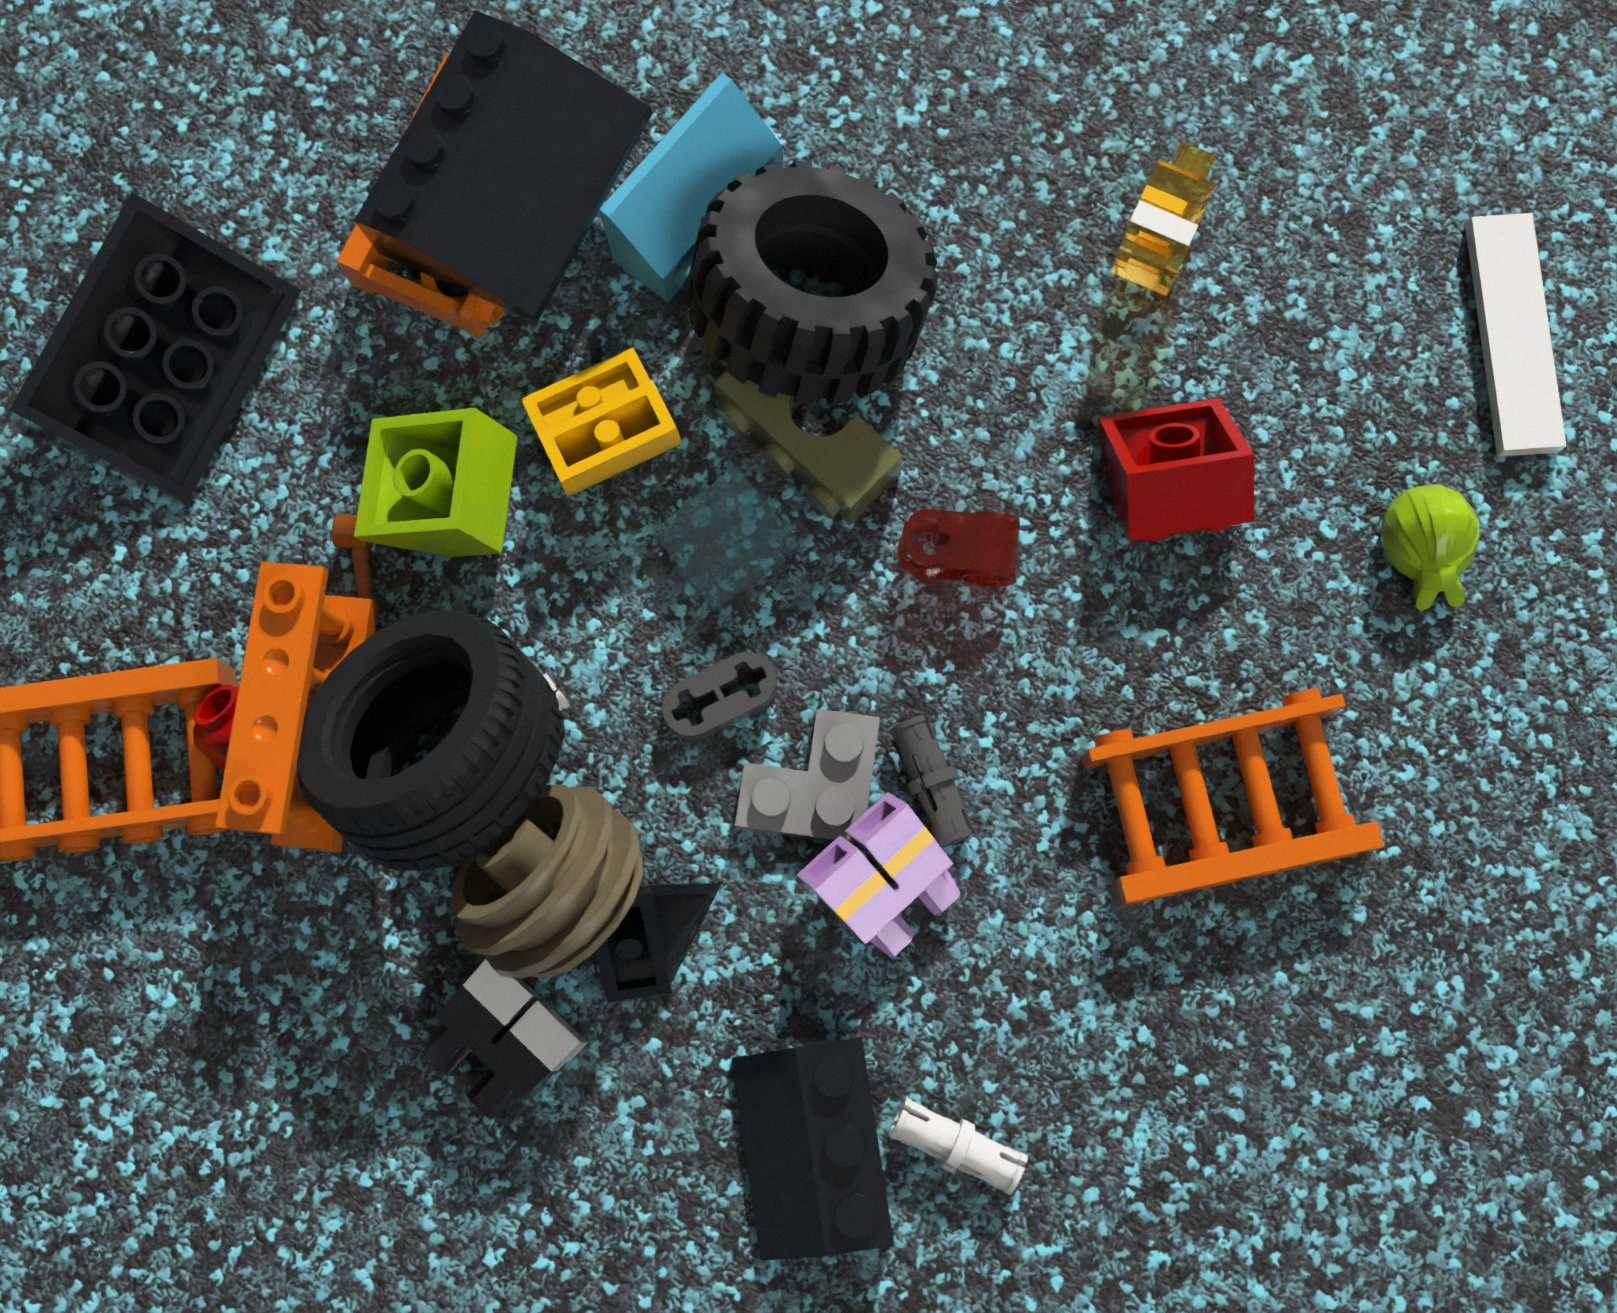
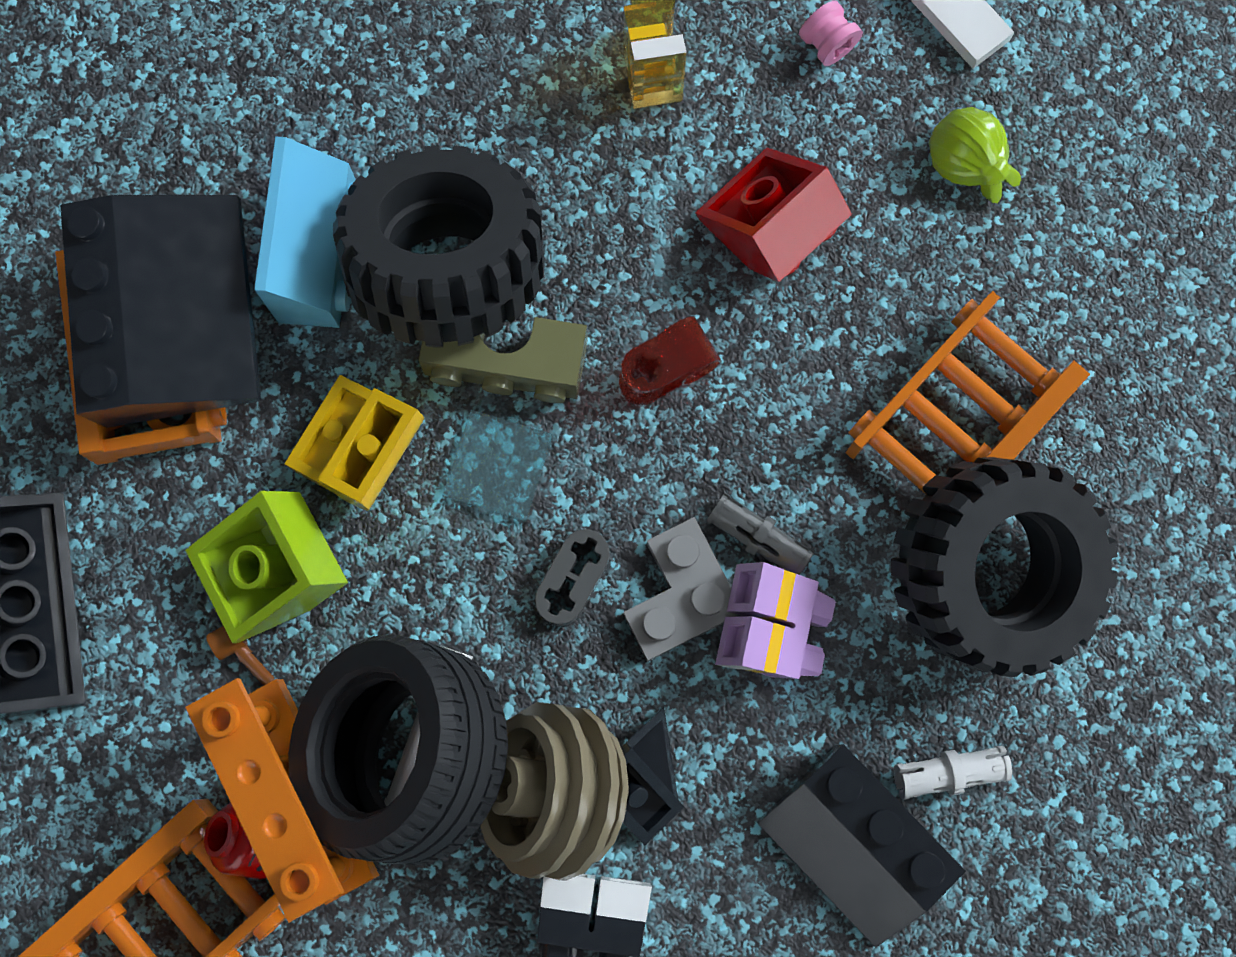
camera: 40 degrees left, 0 degrees up
(1199, 1038) = (1065, 575): none -> black tyre
(1366, 323) = (830, 33): none -> bright pink wheel

